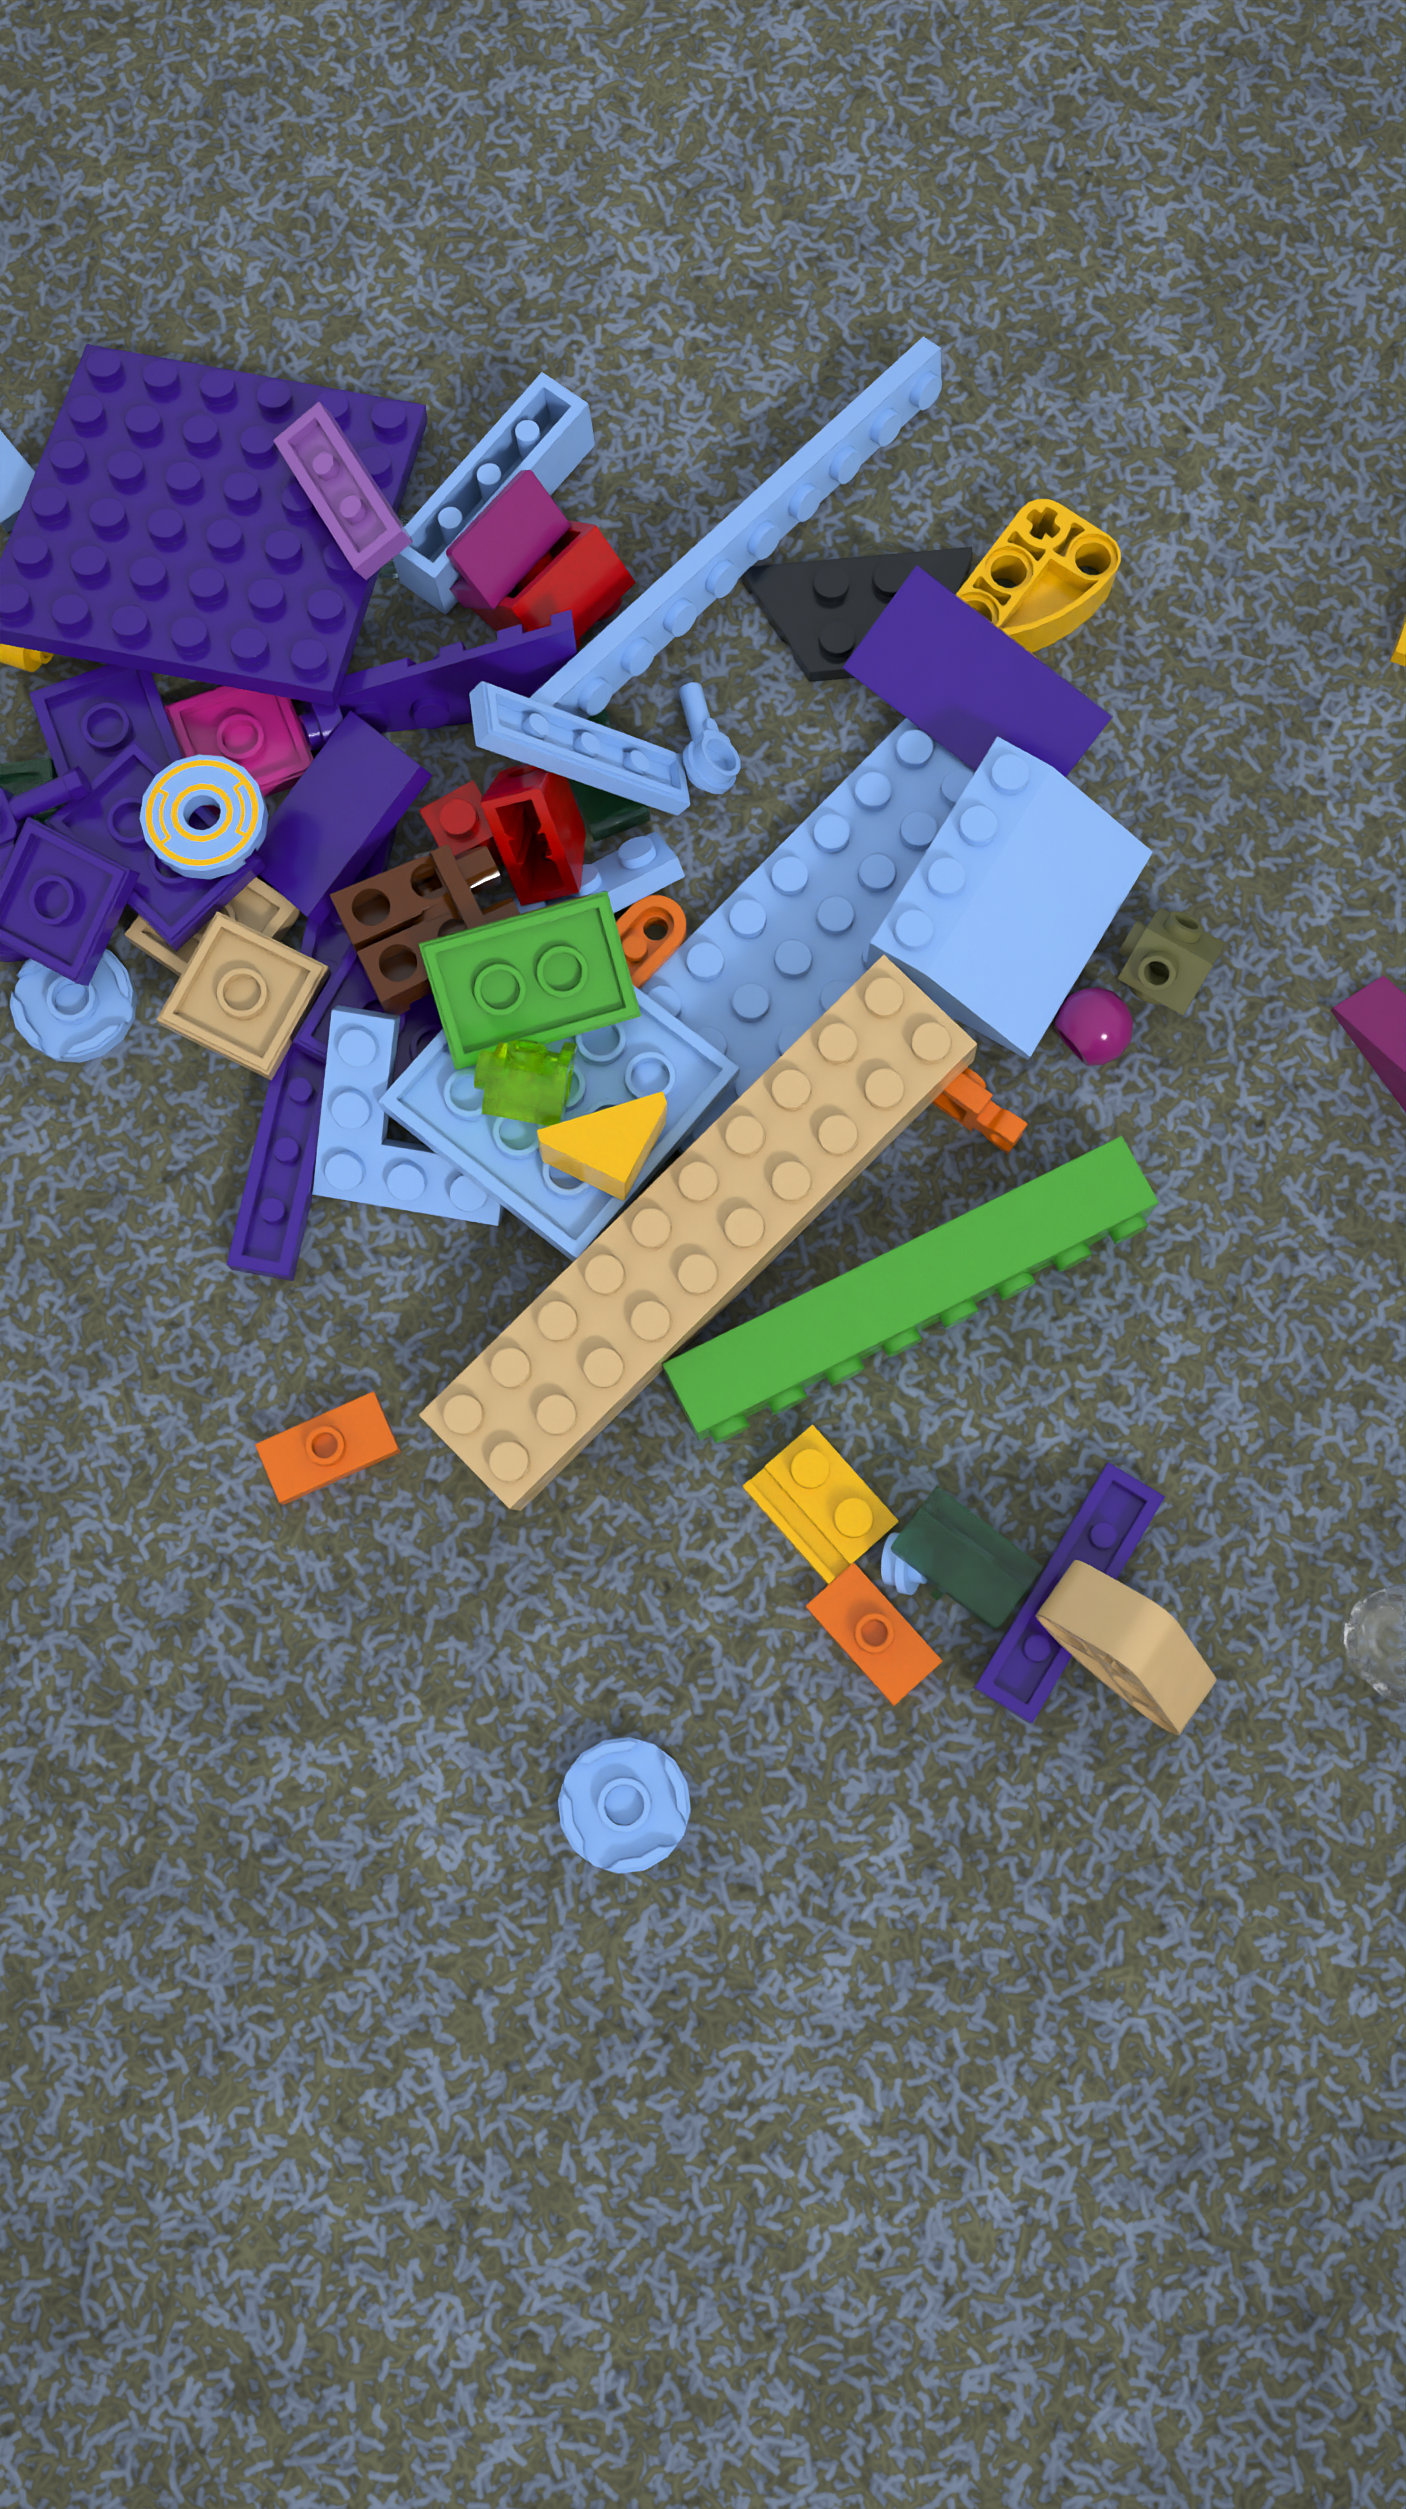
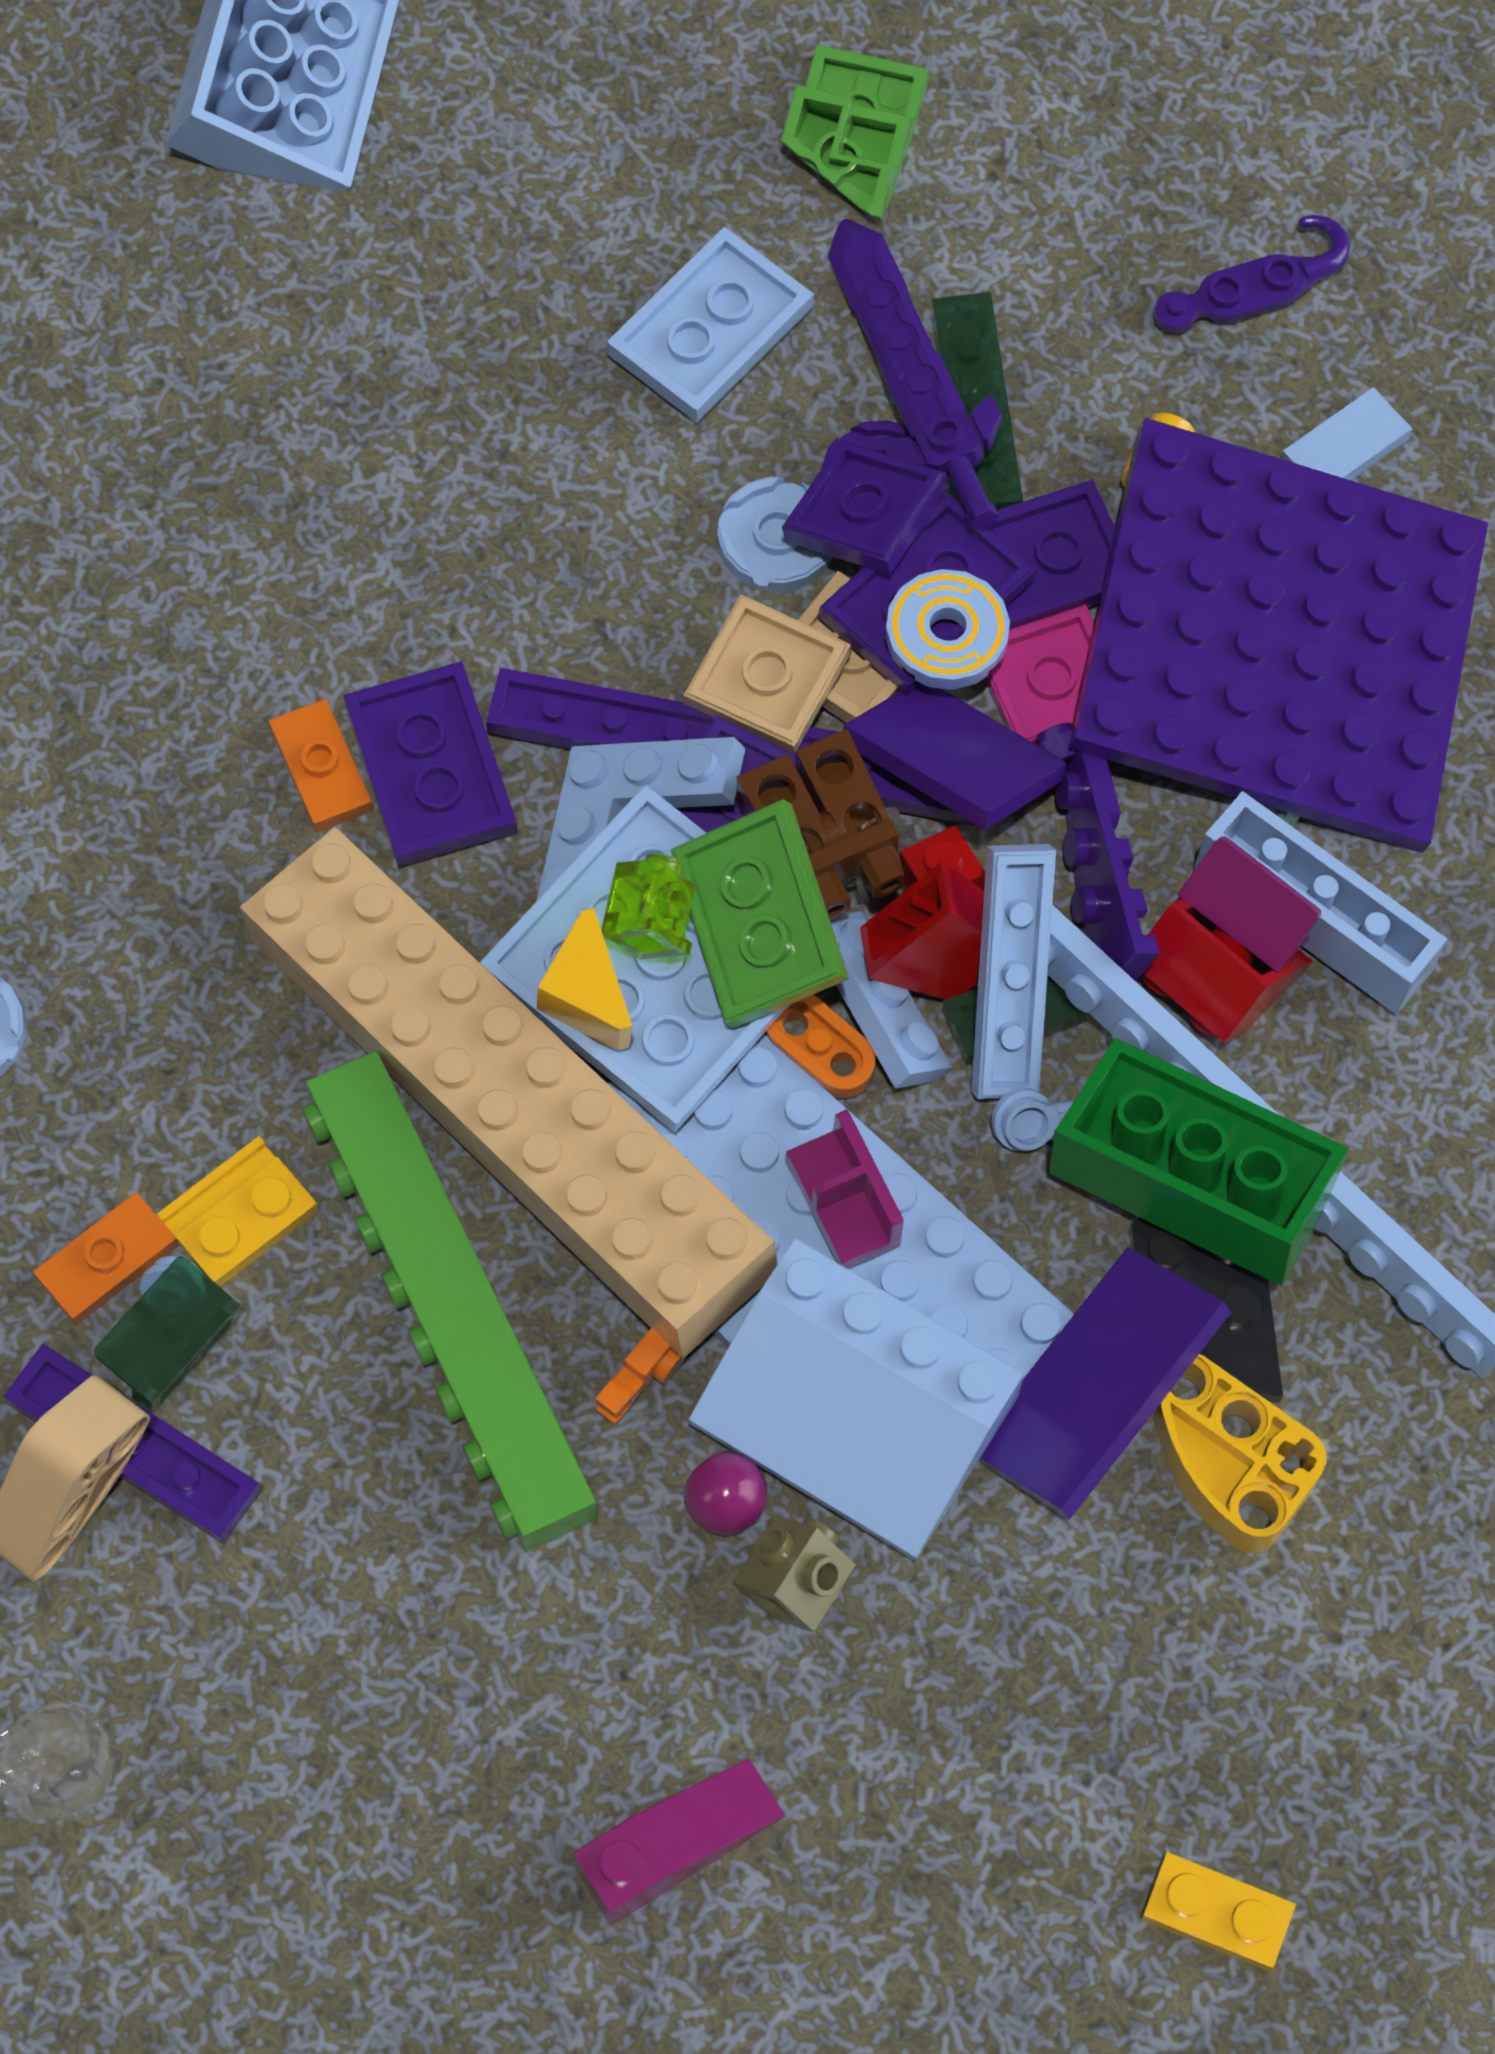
camera: 85 degrees right, 10 degrees down
(330, 1334) = (430, 763): none -> dark purple plate
(342, 491) = (1297, 744): medium lavender plate -> none
(767, 593) = (1197, 1160): none -> green slope
(801, 910) = (847, 1193): none -> magenta panel

